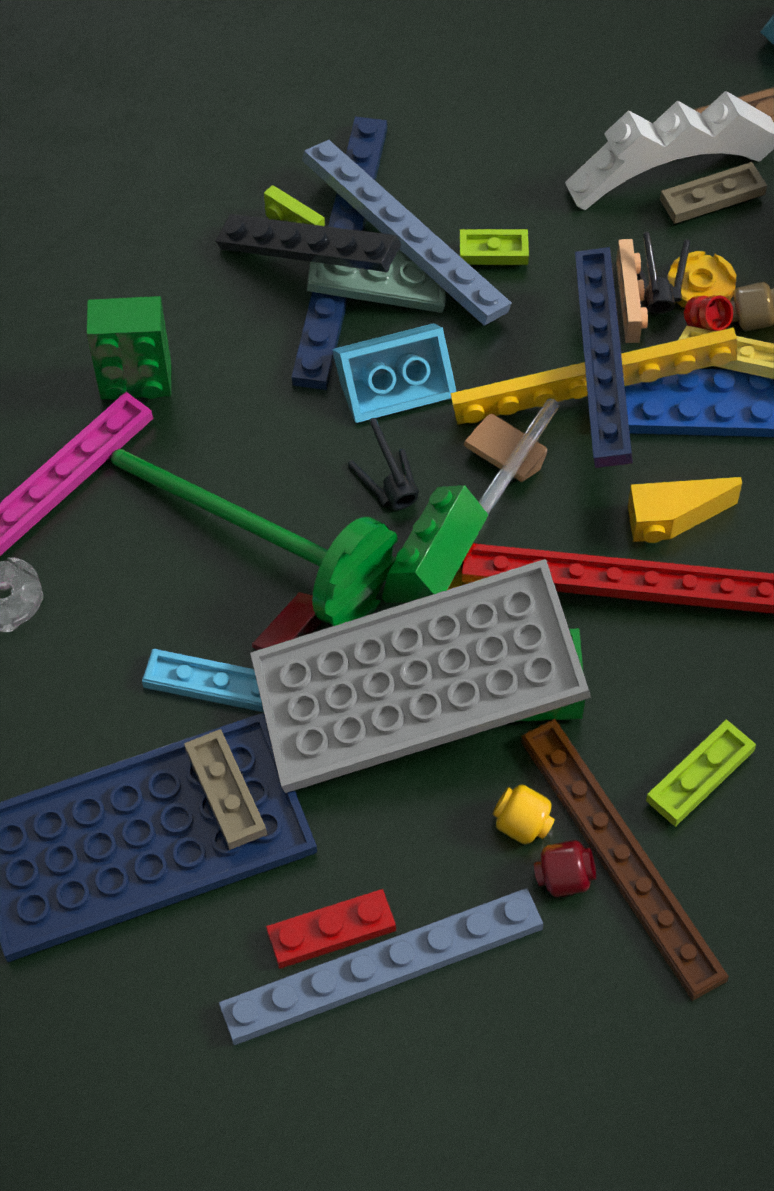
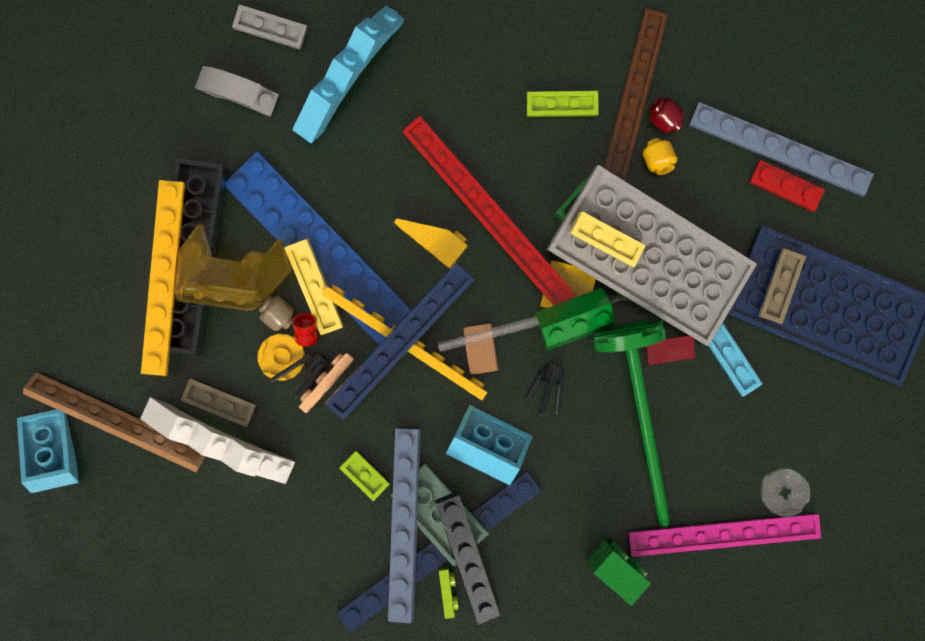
camera: 140 degrees left, 30 degrees up
(492, 623) = (607, 239): none -> light yellow plate

